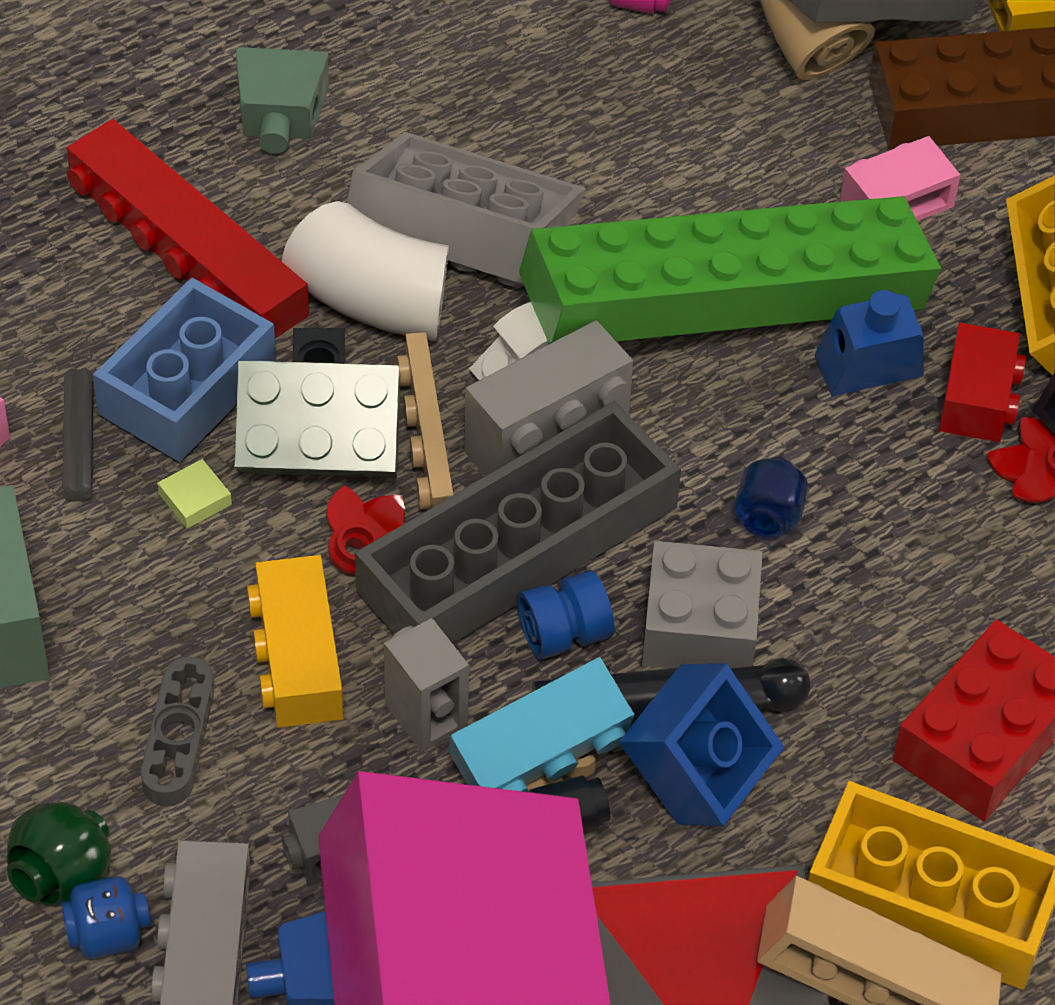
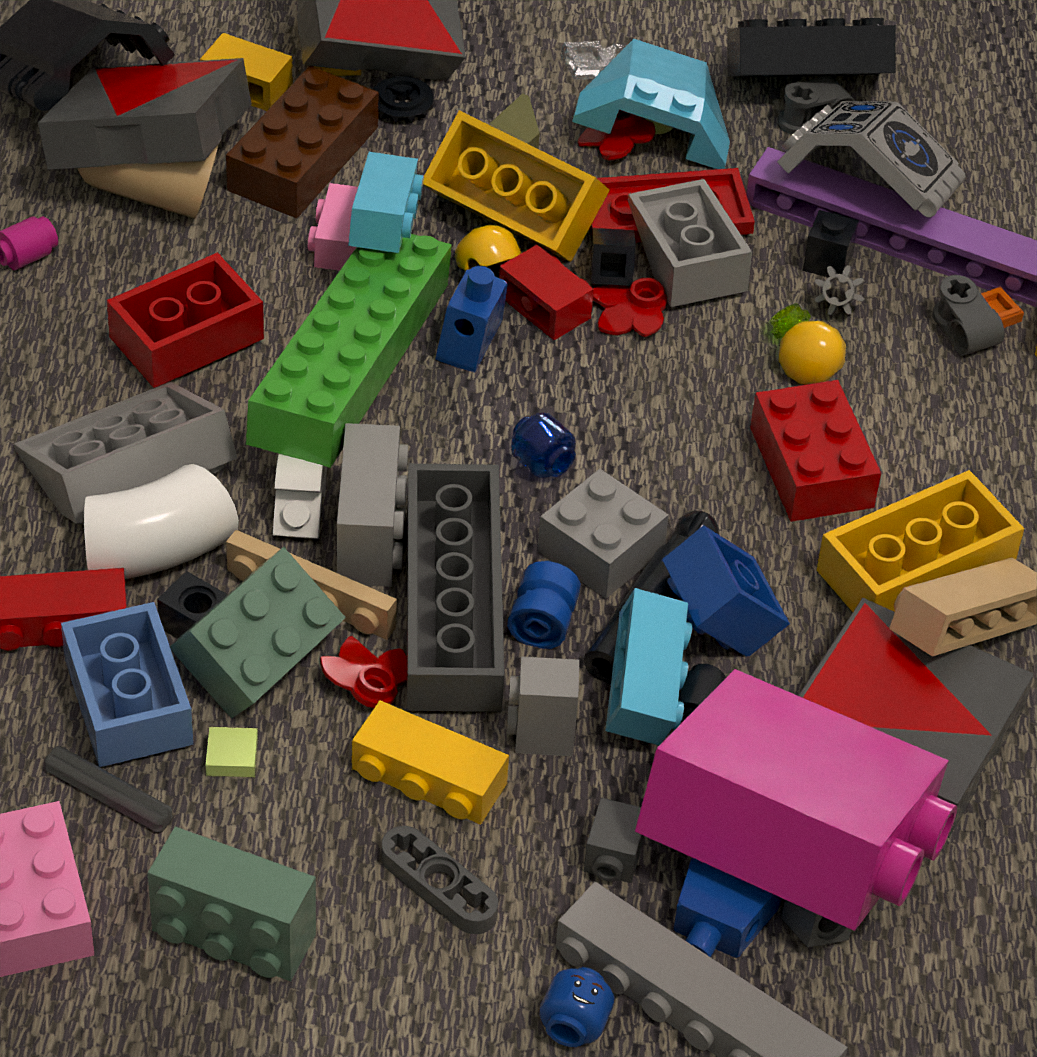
camera: 55 degrees left, 5 degrees down
(54, 848) = (501, 999): dark green plant -> none
(650, 145) = (185, 319): none -> red brick
(917, 179) = (385, 202): none -> medium azure brick
(980, 301) = (486, 247): none -> yellow hair

